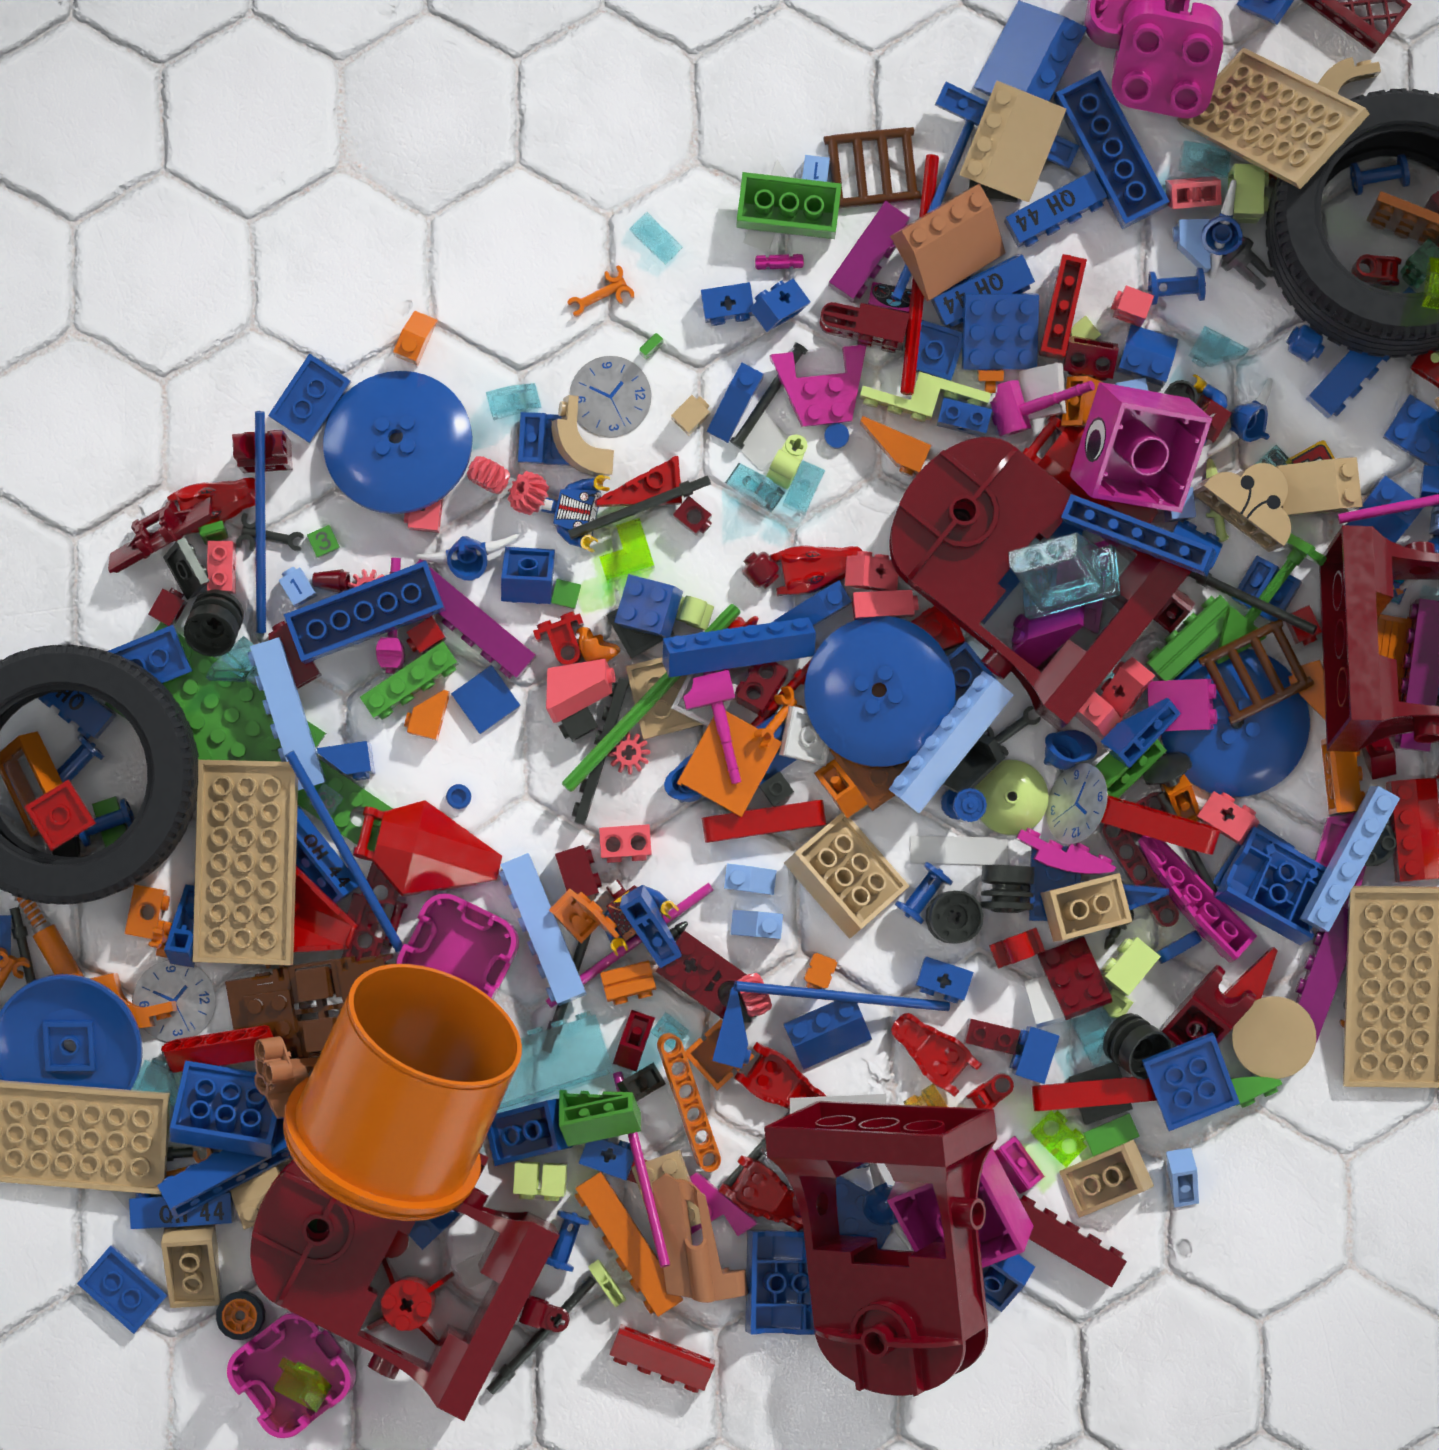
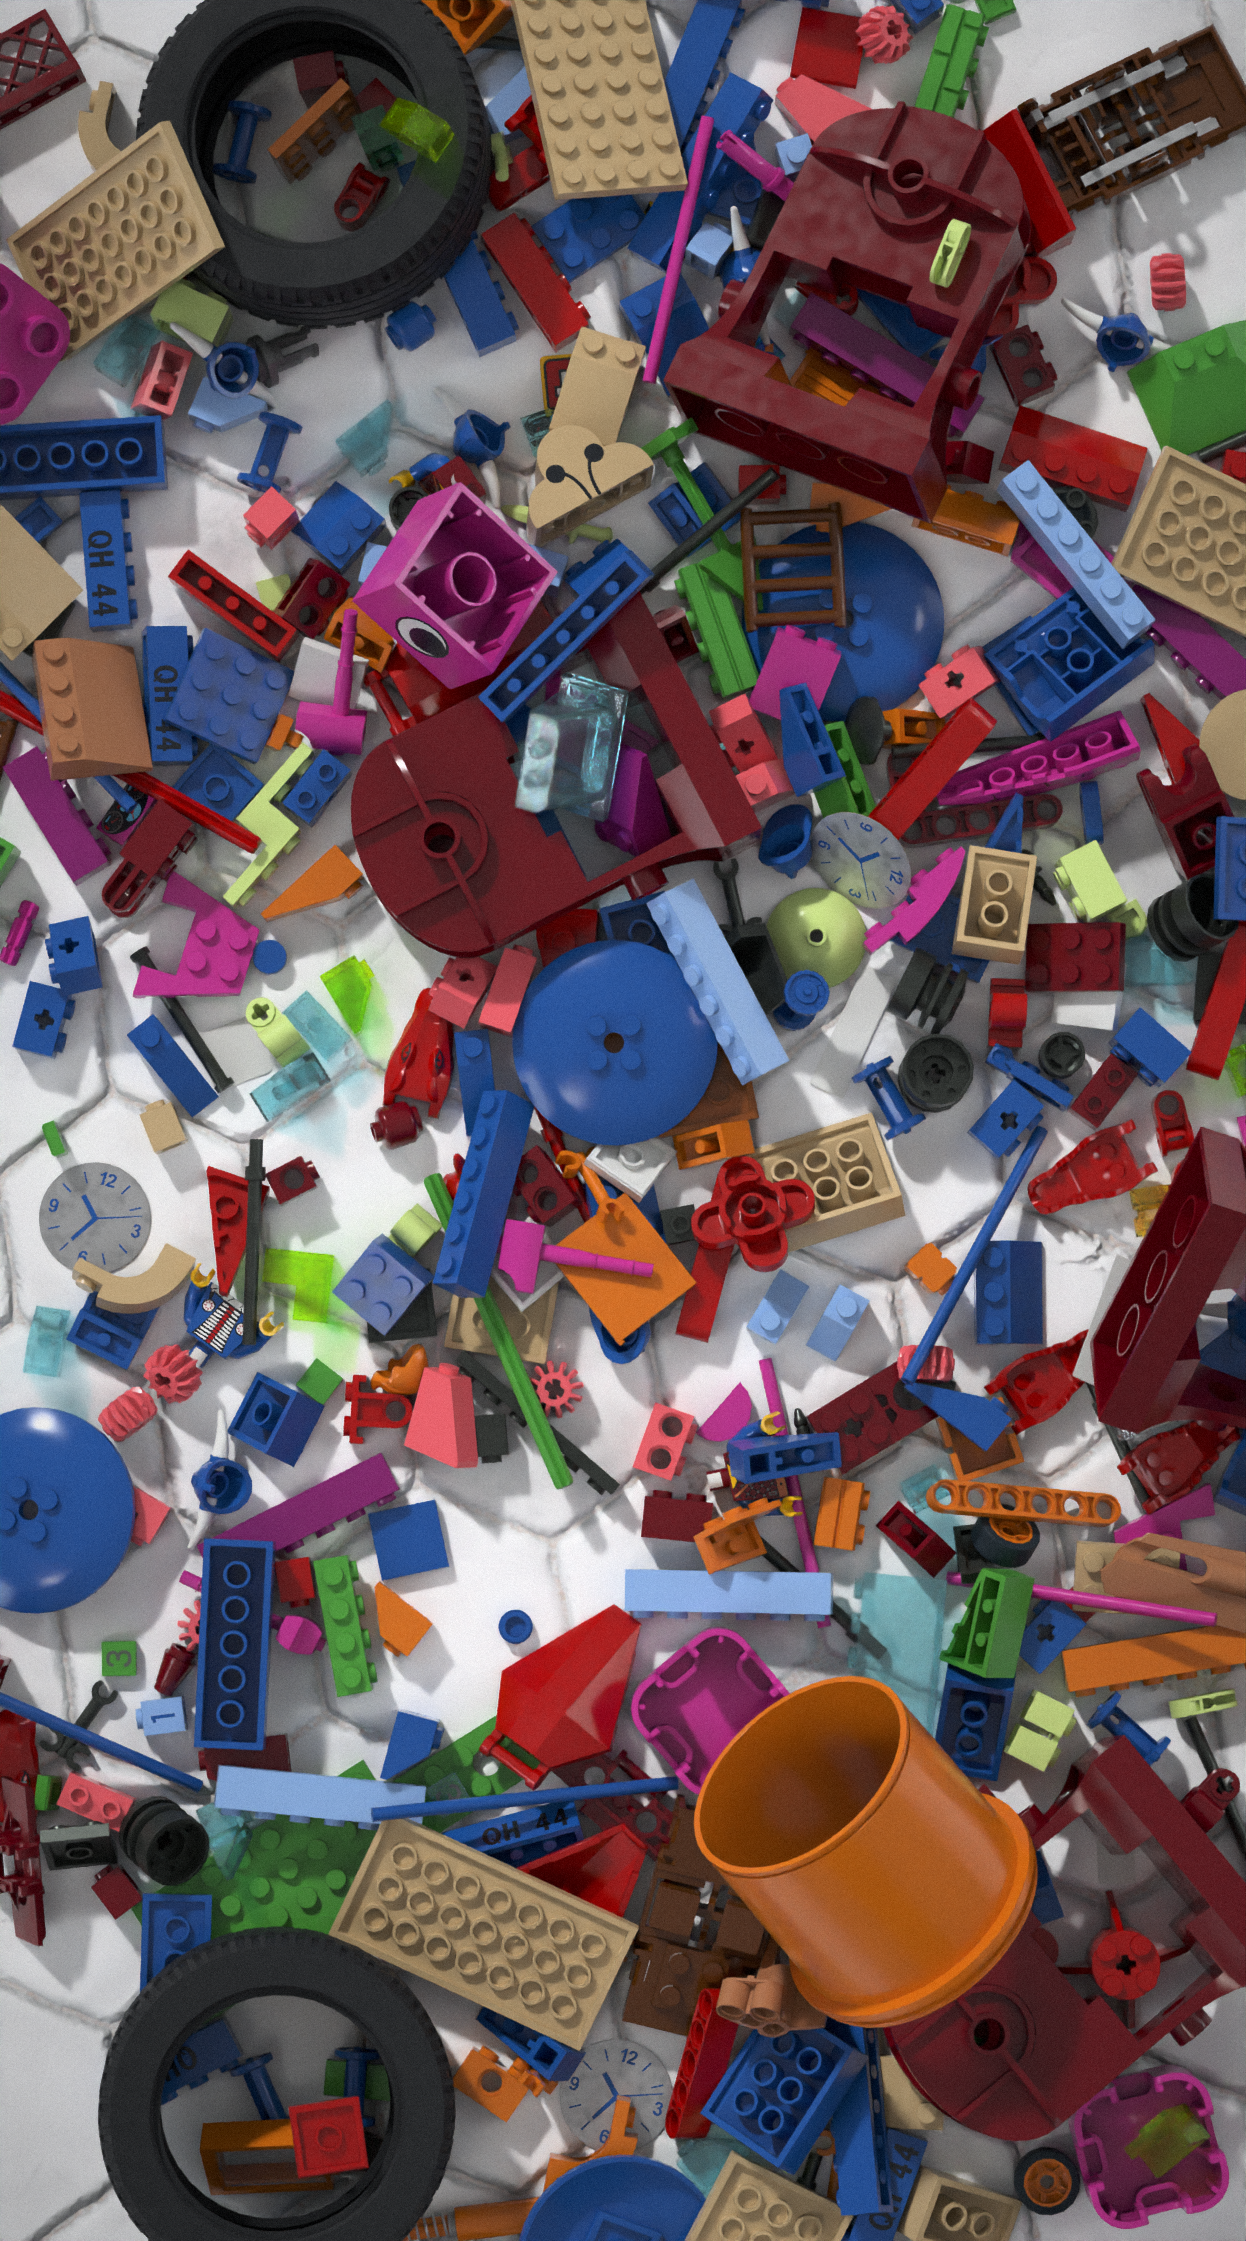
camera: 65 degrees left, 0 degrees up
(658, 1101) = (1005, 1540): none -> black wheel
(661, 878) = (728, 1417): none -> dark pink tile
(804, 834) = (753, 1214): none -> red plant
(837, 499) = (351, 990): none -> clear neon green slope
(979, 981) = (1028, 1077): none -> blue hinge
(1004, 997) = (1061, 1055): none -> pearl dark grey wheel
(1373, 413) = (534, 280): none -> red brick

